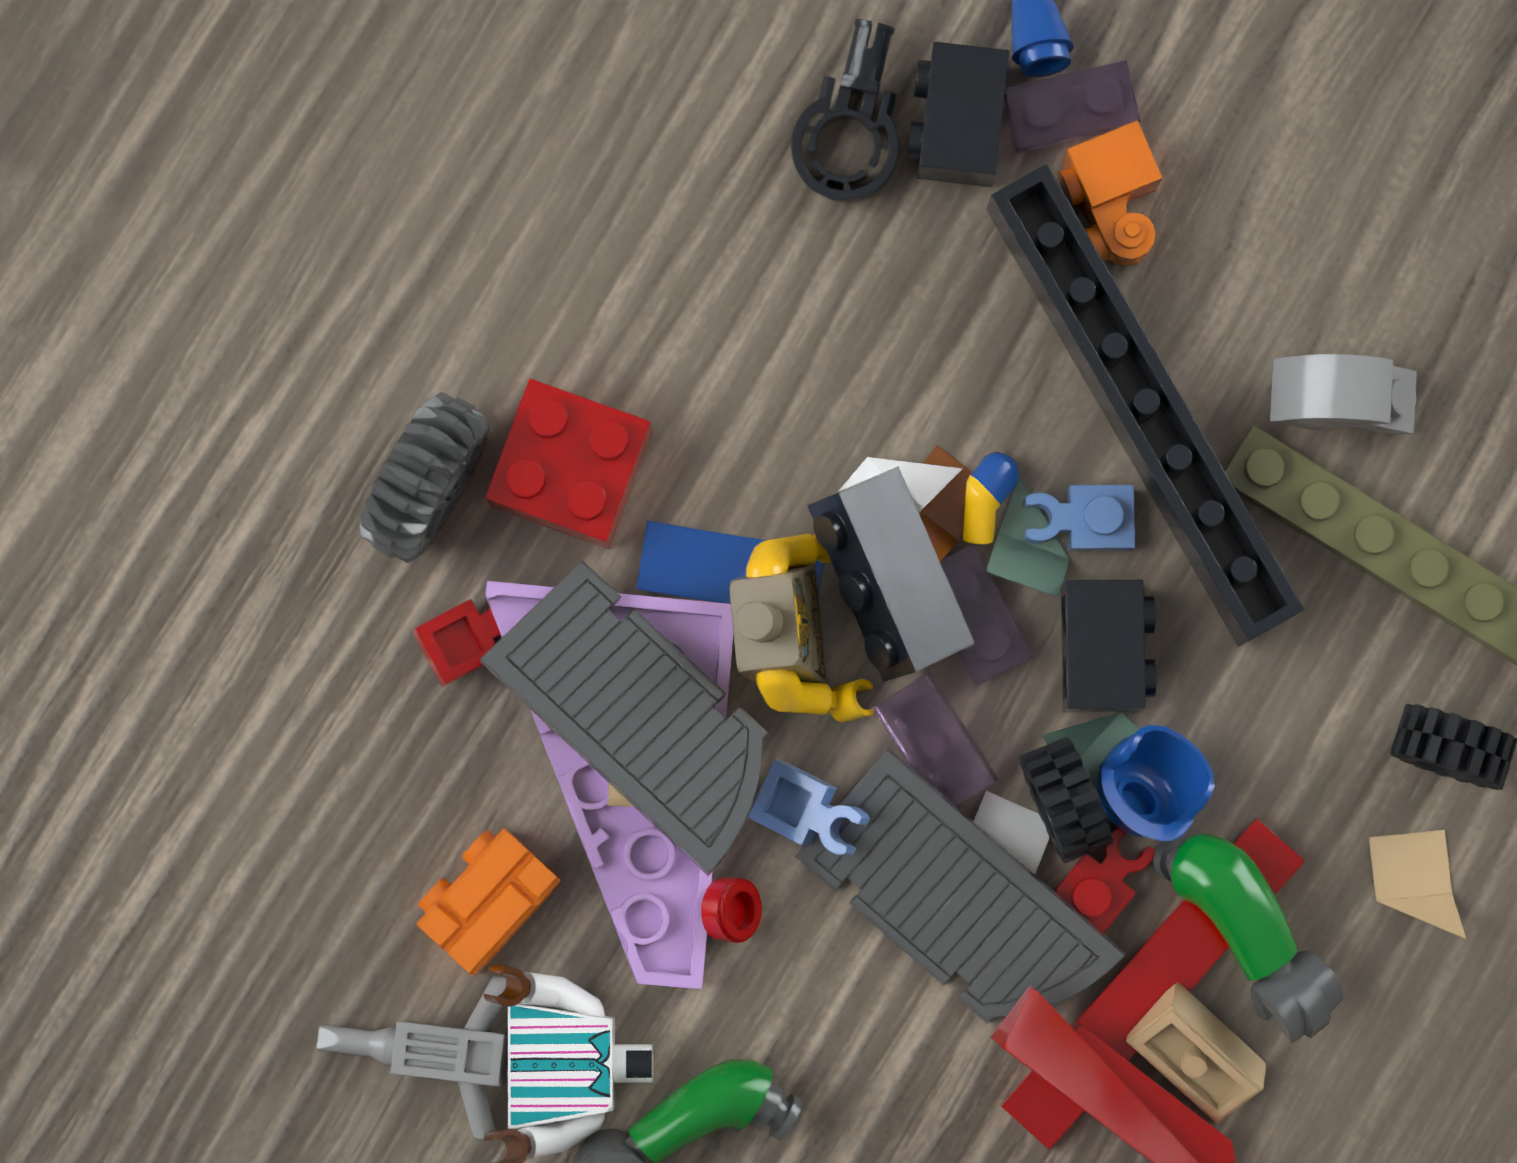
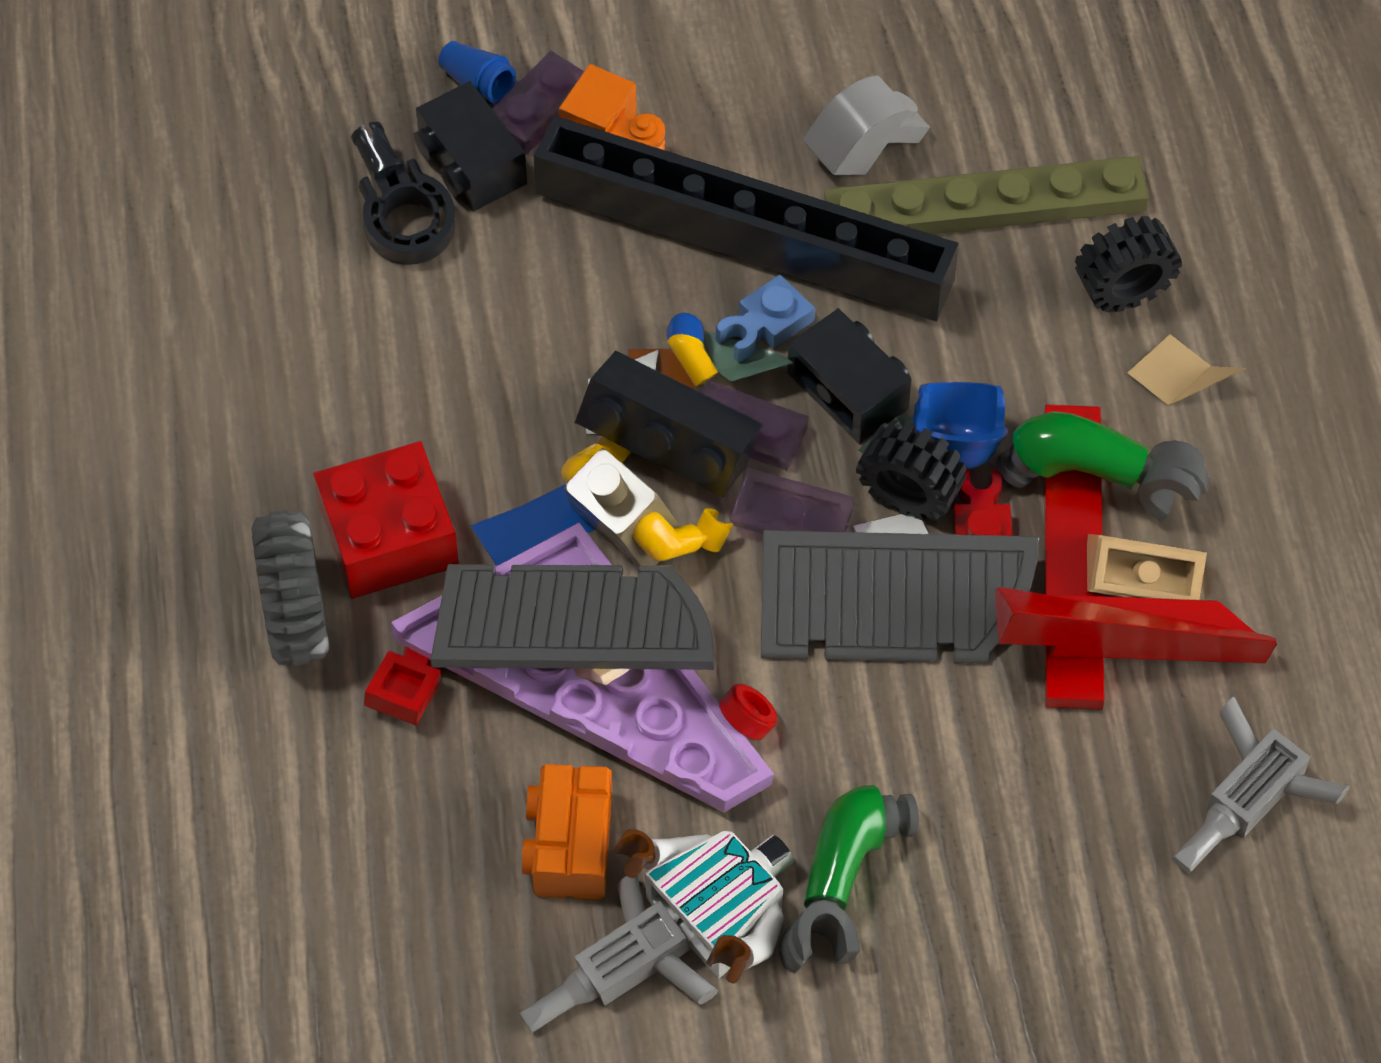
camera: 40 degrees left, 25 degrees down
(800, 807) = (738, 611): medium blue plate -> none

